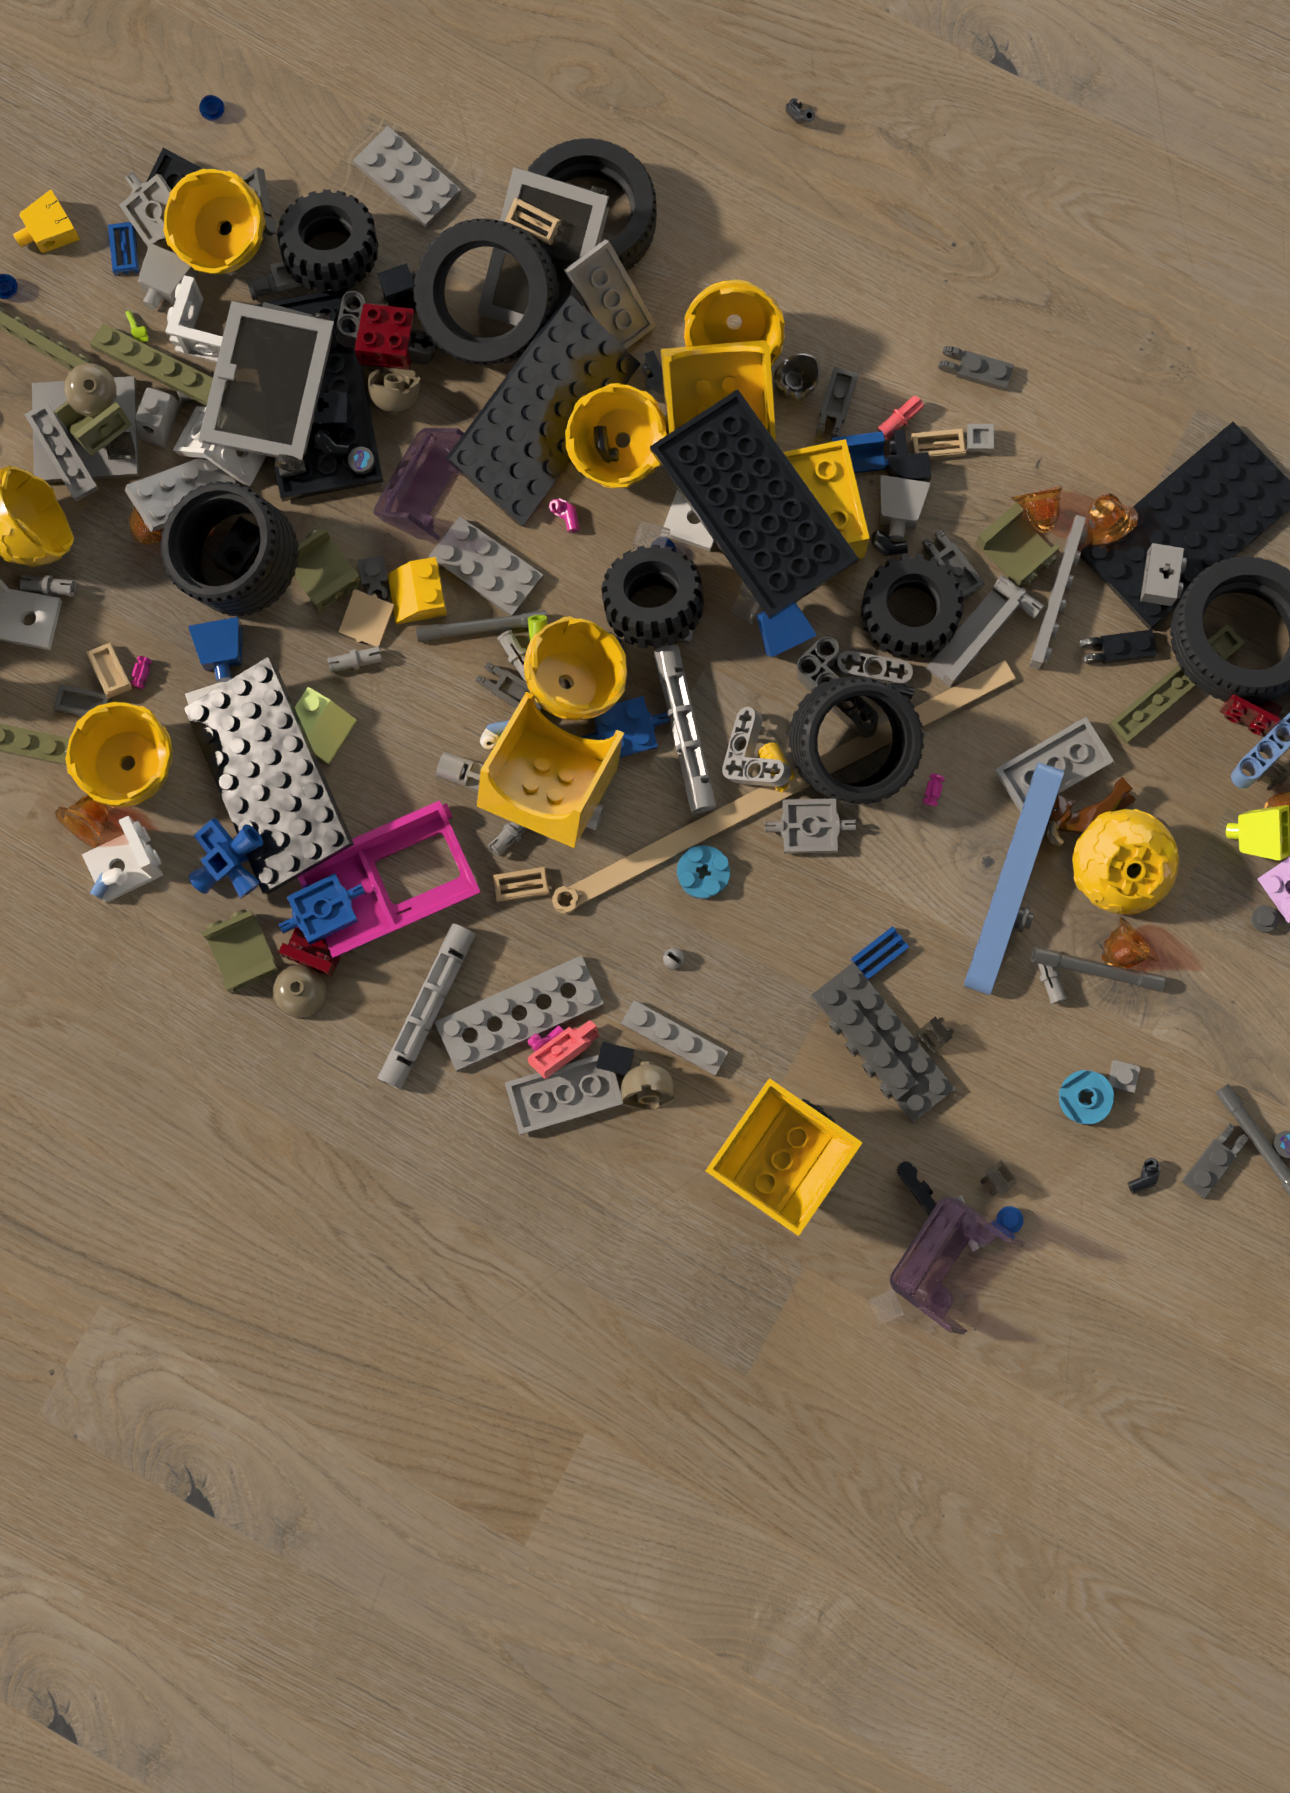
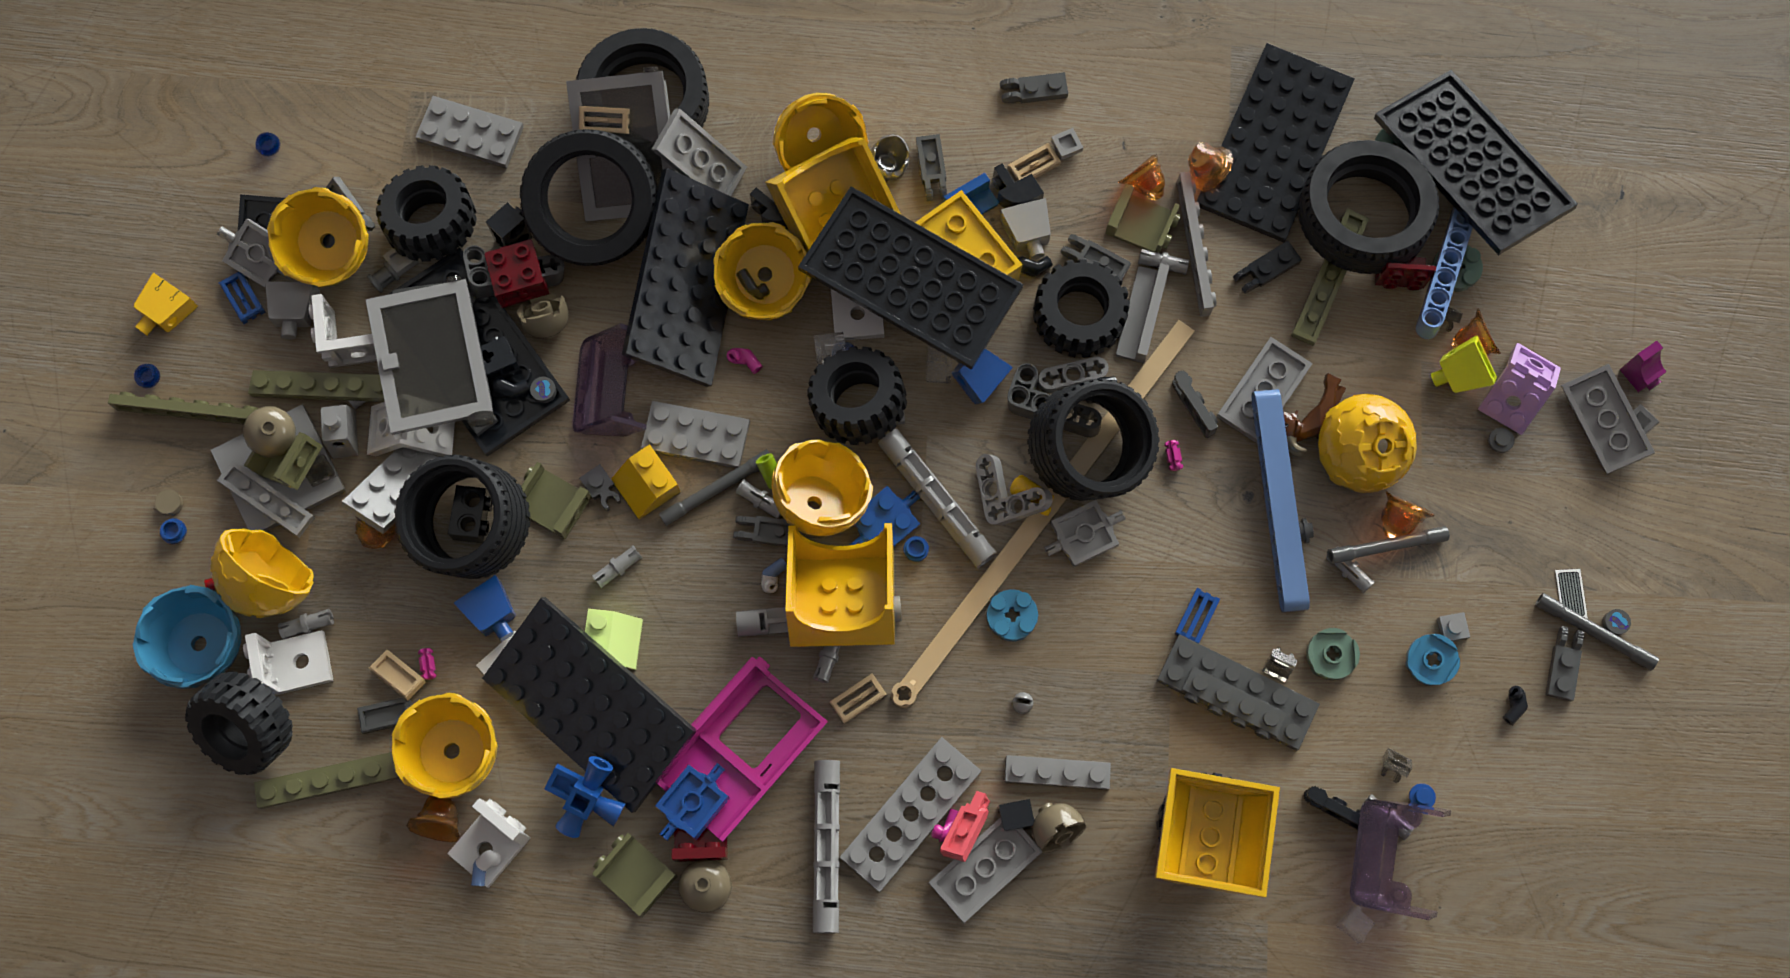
camera: 30 degrees left, 5 degrees down
(139, 333) = (289, 364): lime hand -> none
(366, 618) = (610, 525): tan piece -> none
(642, 768) = (916, 549): none -> blue plate
(900, 417) = (992, 154): coral axle -> none
(978, 749) = (1194, 404): none -> dark grey hinge
(1006, 1043) = (1342, 644): none -> sand green plate
(1157, 588) = (1274, 203): light grey brick -> none
(1259, 1095) = (1571, 590): none -> sticker

